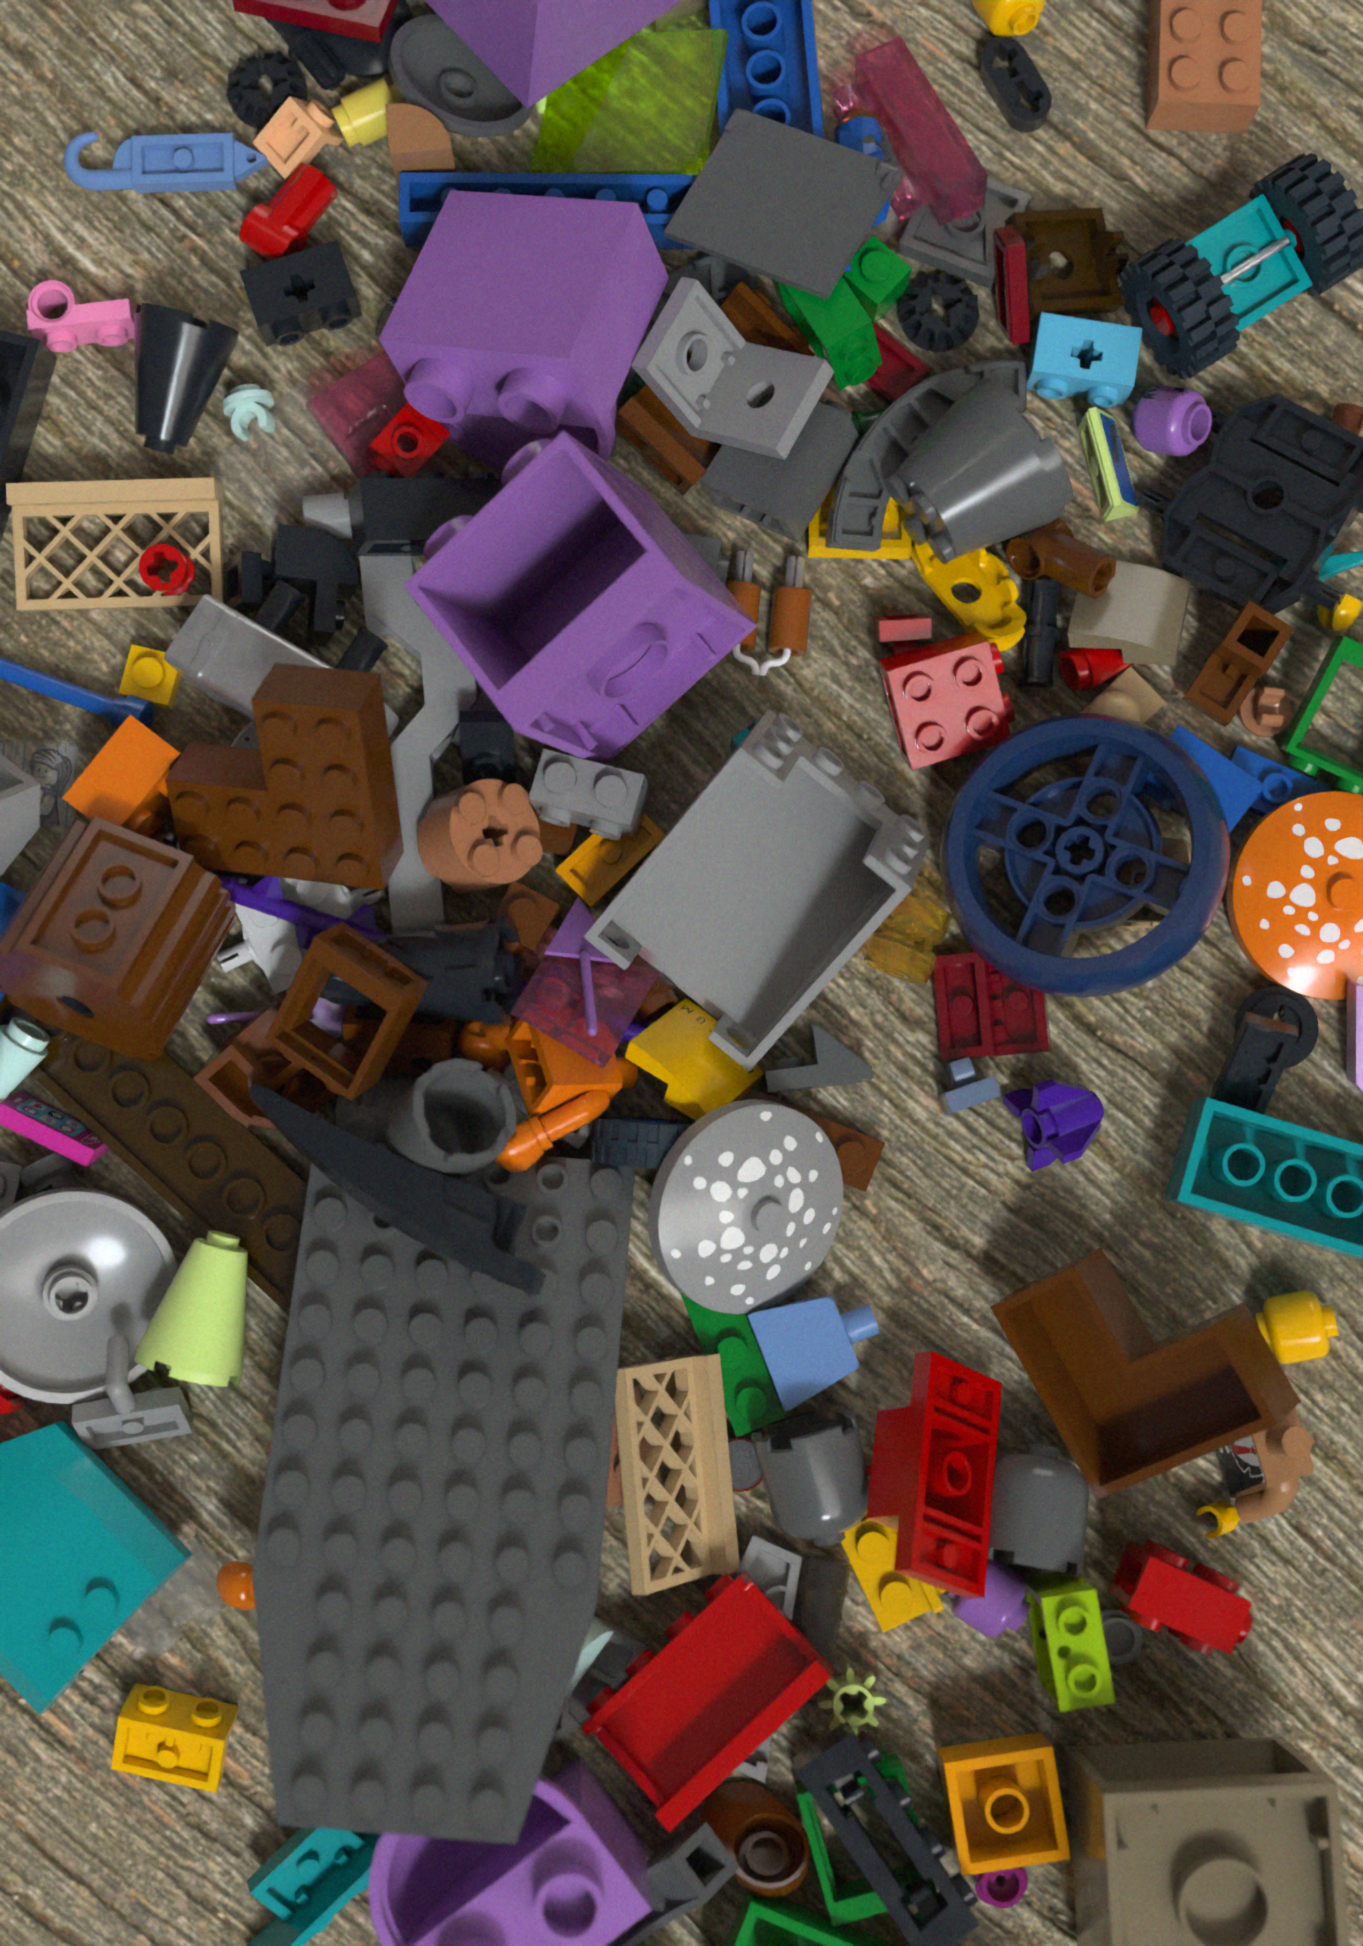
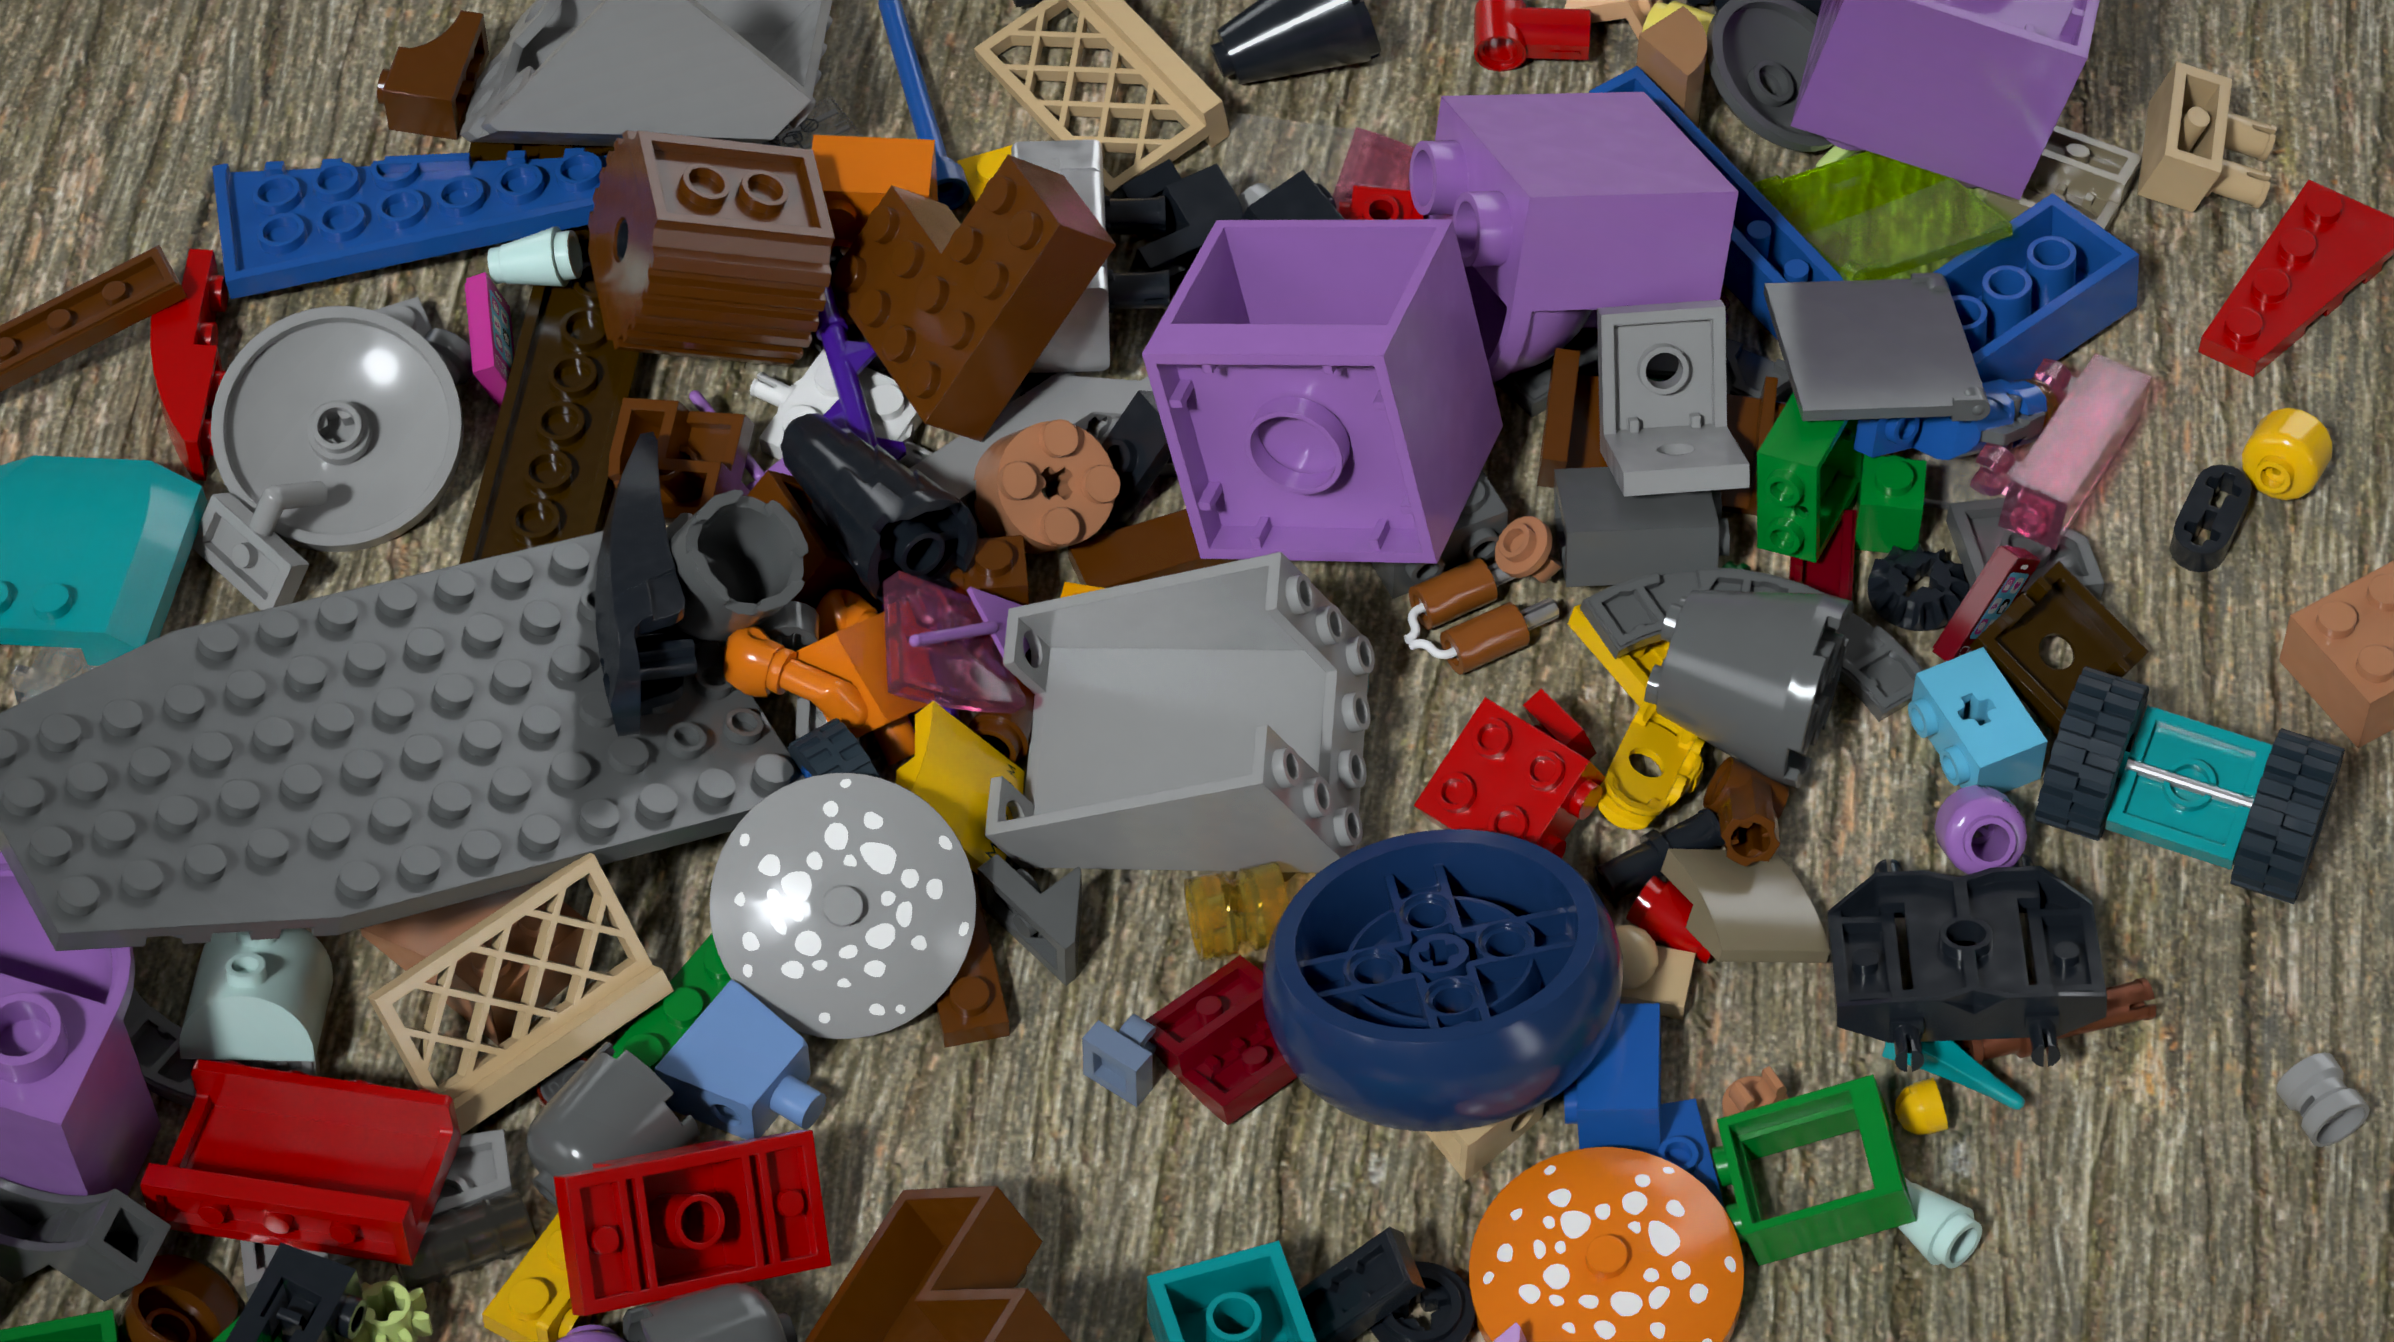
camera: 60 degrees right, 30 degrees down
(153, 561) = (1102, 112): red bush -> none
(202, 1315) = (399, 528): yellowish green cone -> none
(245, 404) = (1318, 101): light aqua plate -> none
(277, 284) = (1456, 62): black brick -> none
(371, 973) = (810, 395): reddish brown window -> none
(589, 795) = (1152, 530): light grey brick -> none
(751, 548) = (1526, 550): none -> nougat plate
(1056, 1120) = (1154, 1150): dark purple brick -> none
(1107, 465) = (1891, 813): yellowish green slope -> none
(1237, 662) = (1791, 1033): reddish brown brick -> none

